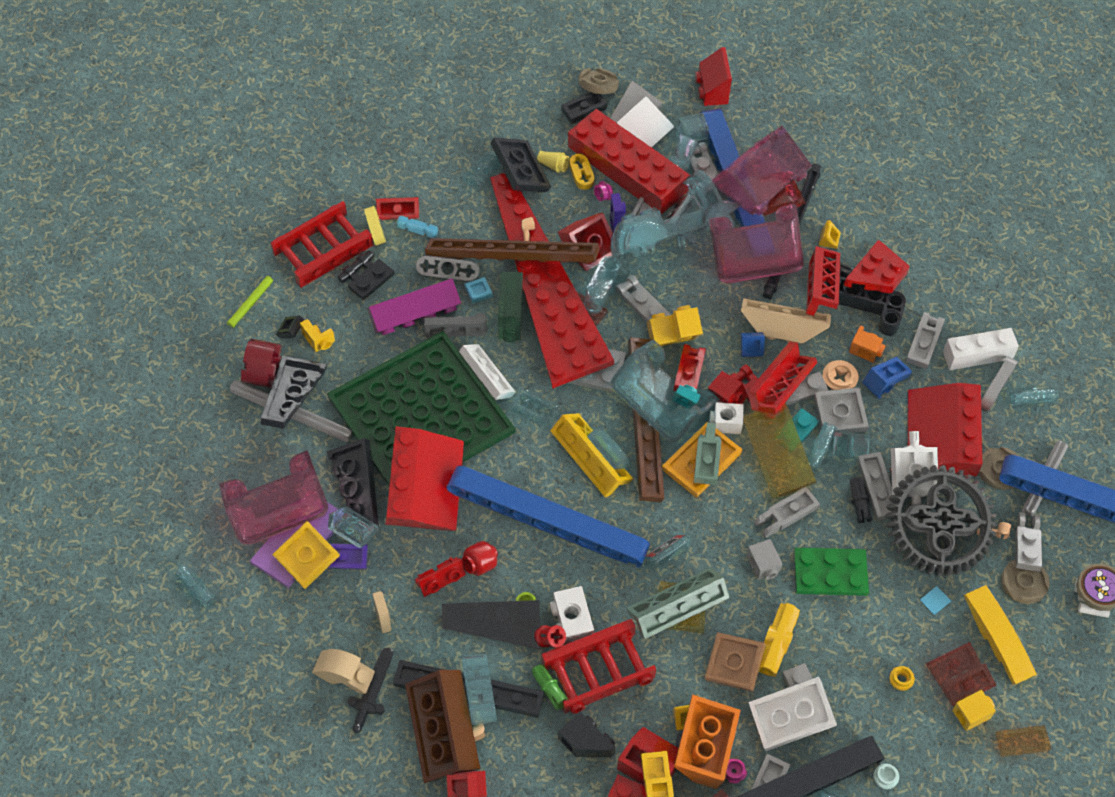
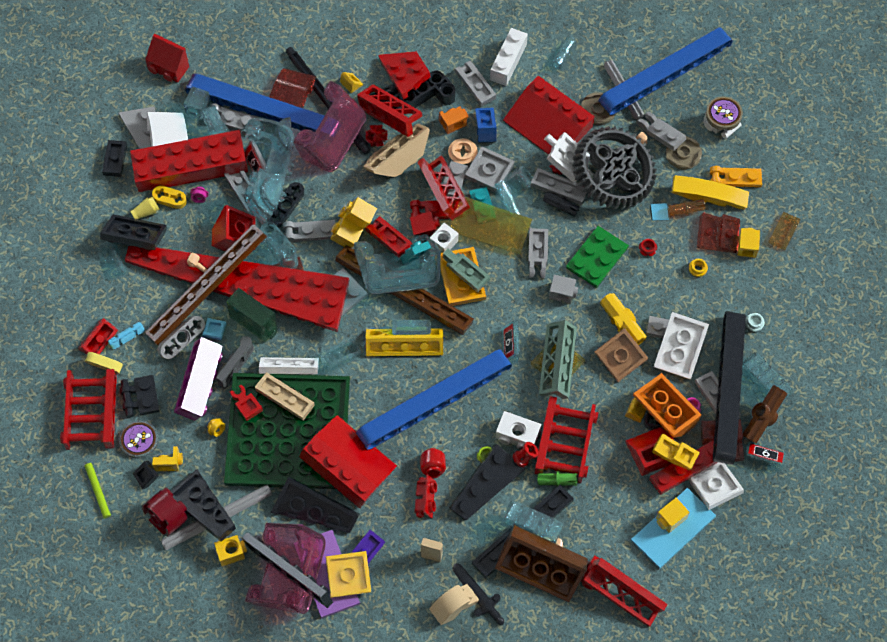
camera: 55 degrees left, 5 degrees up
(261, 433) = (222, 547): none -> yellow brick
(267, 497) = (293, 573): none -> plate
(322, 301) = (138, 439): none -> tile
(352, 526) = (348, 530): clear light blue slope -> none
(379, 350) = (214, 425): none -> yellow plate
(416, 360) = (246, 405): none -> red plate
(448, 385) = (284, 396): none -> tan plate
(584, 738) = (610, 480): black slope -> none
(598, 81) = (101, 134): dark tan tile -> none
(617, 210) = (230, 196): dark purple plate -> none
(656, 259) = (297, 197): none -> black beam
(752, 344) = (399, 186): blue plate -> none
(763, 171) = (272, 83): clear pink windscreen -> none
(789, 291) = (376, 135): none -> red gear
(885, 608) = (648, 243): none -> red plate
(961, 622) = (686, 207): none -> clear orange axle
(998, 383) = (539, 62): light grey beam -> none
(1044, 651) = (737, 176): none -> light orange plate

